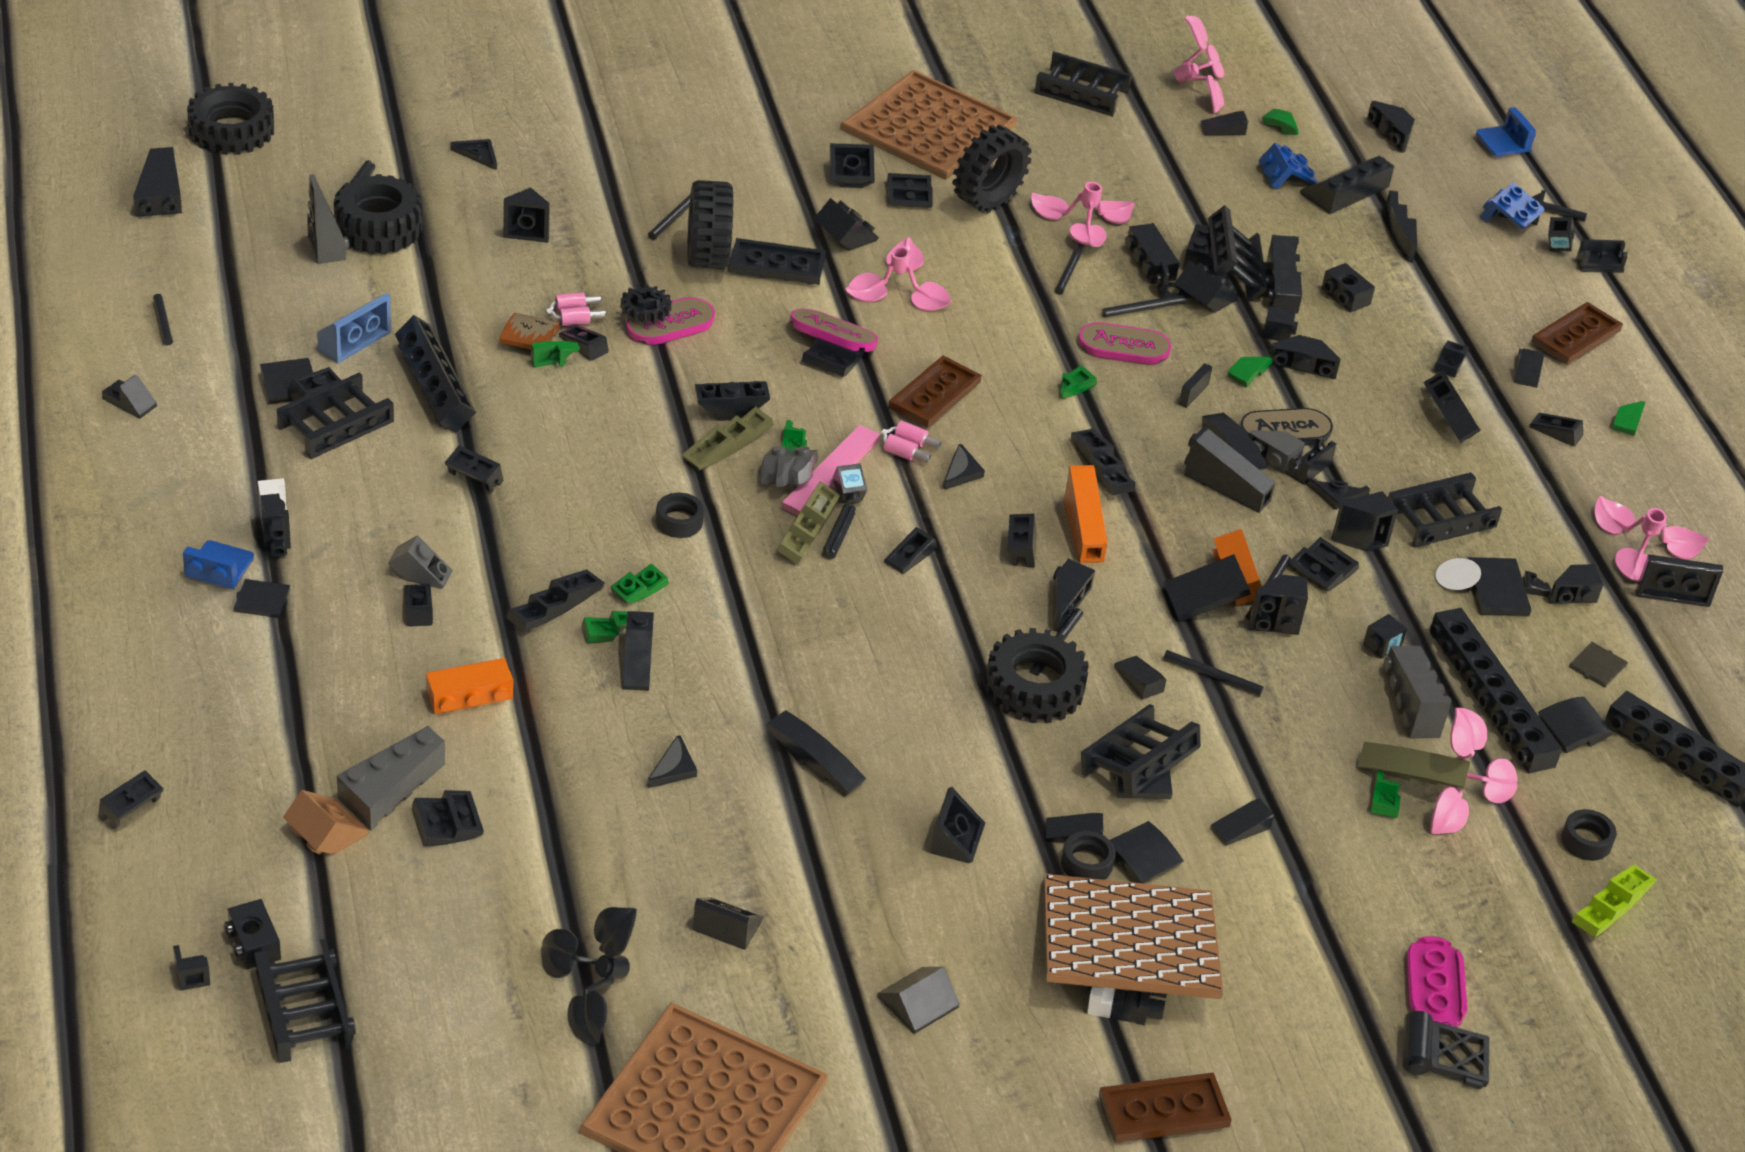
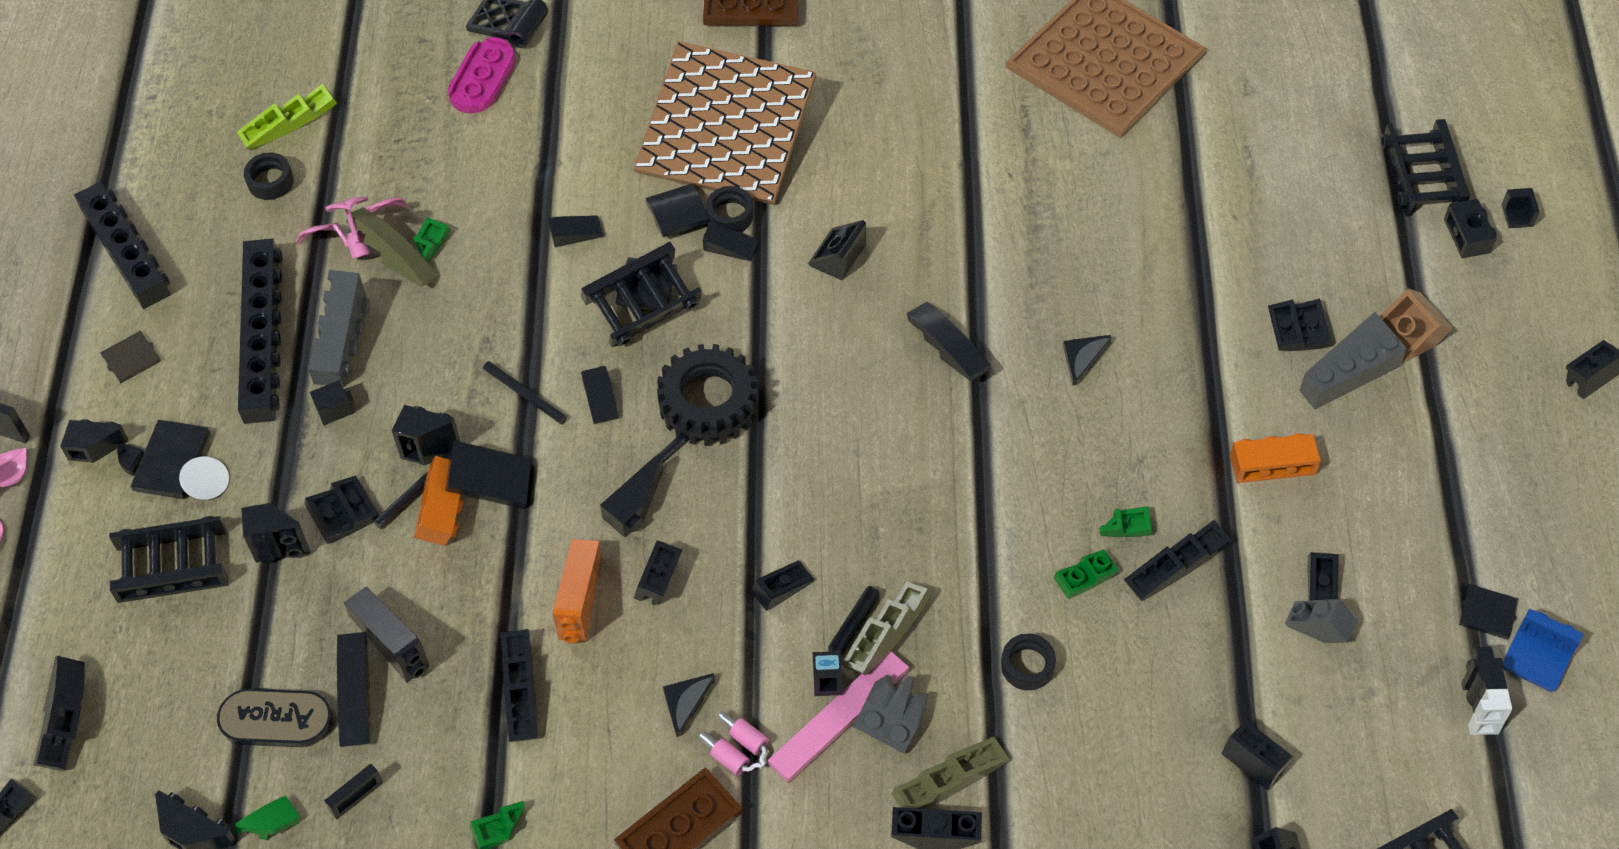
camera: 160 degrees left, 15 degrees up
(611, 929) = (1171, 156): black plant -> none
(638, 650) = (1100, 483): black slope -> none
(725, 922) = (1063, 191): black slope -> none
(793, 436) = (873, 765): green slope -> none
(921, 997) = (917, 115): slope -> none
(1277, 447) = (306, 673): dark grey slope -> none
(1312, 462) = (276, 652): black hinge -> none
(1335, 491) = (268, 611): black tile -> none
(1574, 723) = (202, 287): black slope -> none

